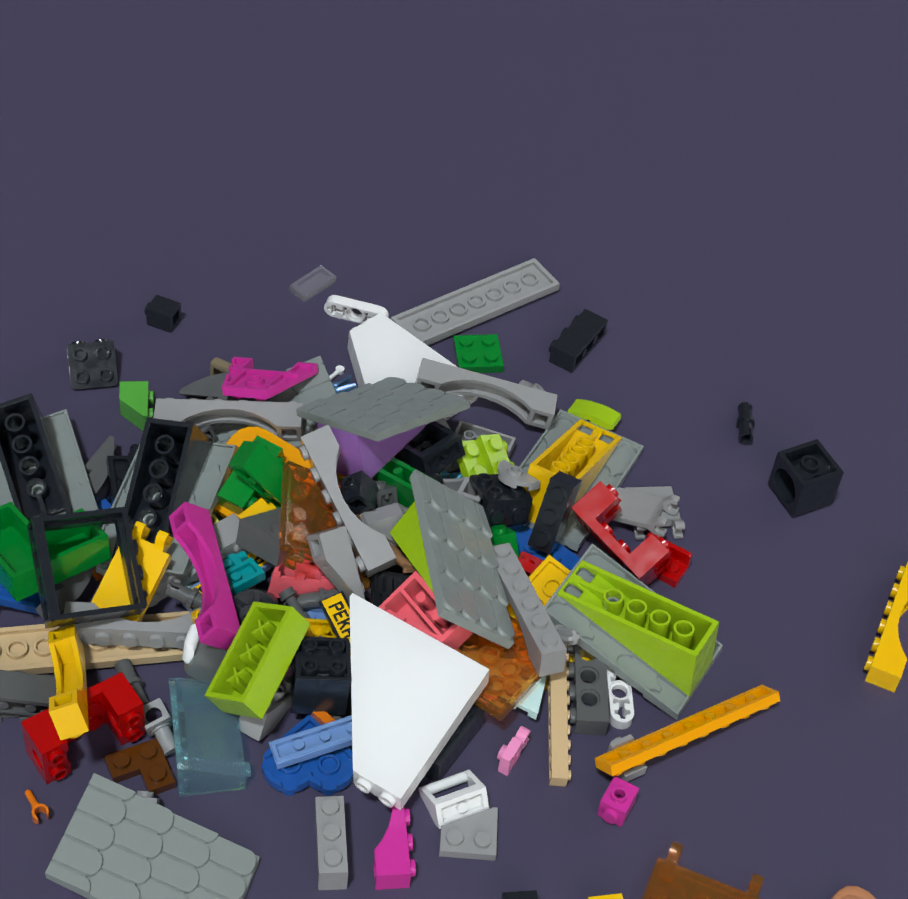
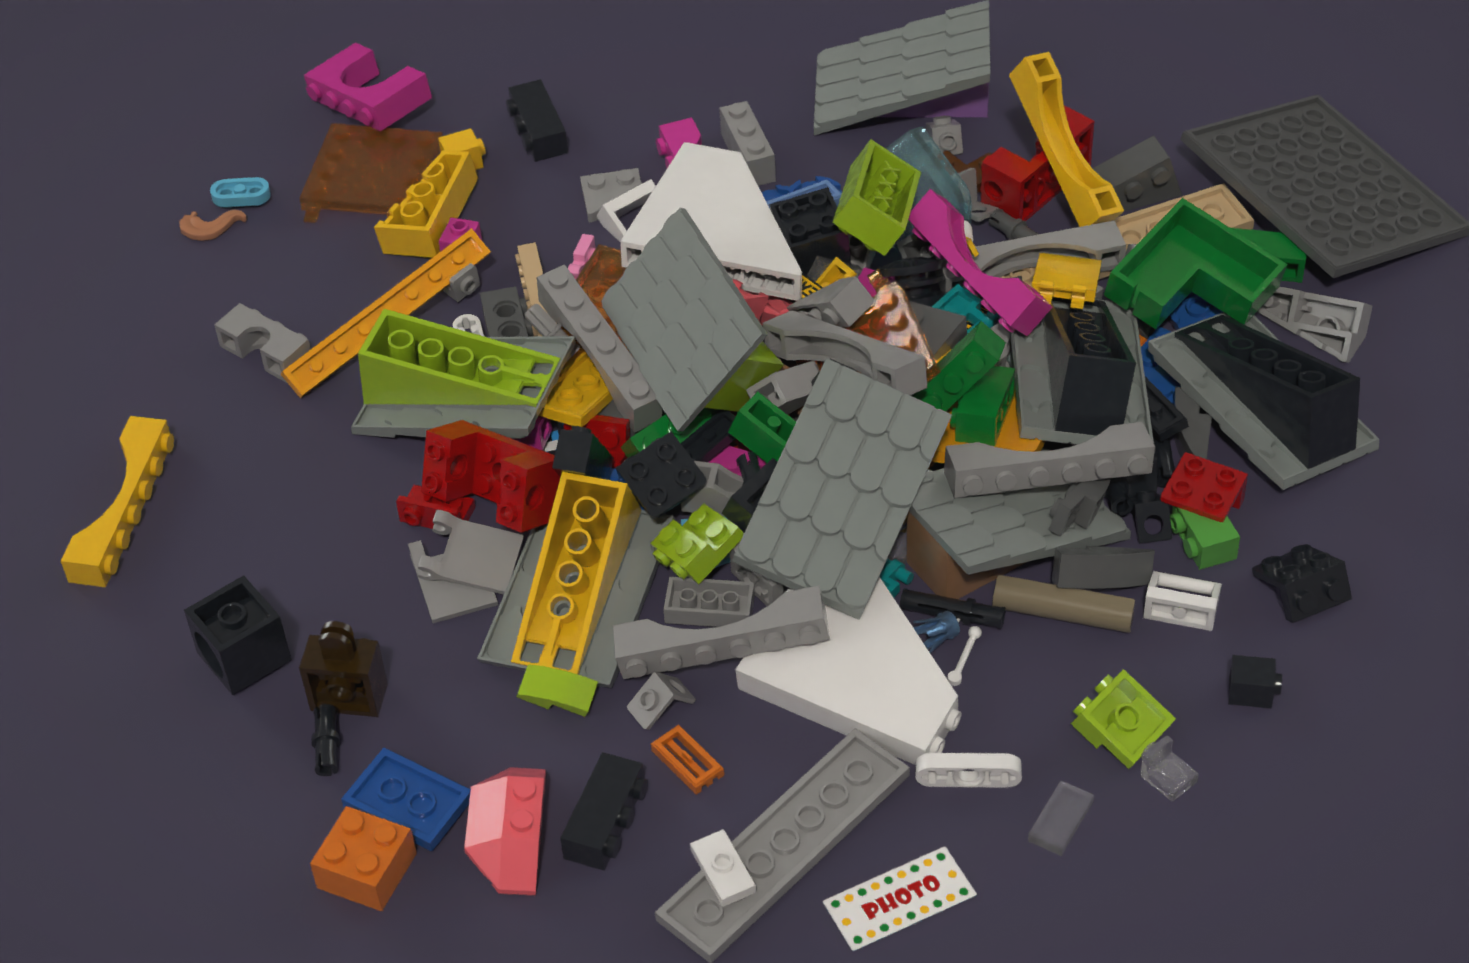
camera: 175 degrees right, 0 degrees up
(43, 569) = (1170, 223): black window -> none
(121, 419) = (1205, 487): none -> red bracket
(176, 362) = (1182, 607): none -> white tile
(240, 287) = (1166, 770): none -> clear bracket
(254, 313) = (1122, 718): none -> lime plate
(262, 384) = (1034, 494): dark pink wing -> none
(419, 272) = (899, 898): none -> white sticker
(478, 353) = (757, 758): green plate -> none
(514, 475) = (645, 480): light grey plate -> none
(516, 364) = (704, 778): none -> orange tile
(517, 288) = (723, 868): none -> white plate
(634, 351) = (506, 829): none -> coral wedge
(645, 837) = (425, 212): none -> yellow wedge
(695, 377) = (408, 796): none -> blue plate
(723, 347) = (363, 858): none -> orange brick
(734, 438) = (343, 671): none -> dark brown brick
(808, 755) = (249, 330): none -> light grey arch

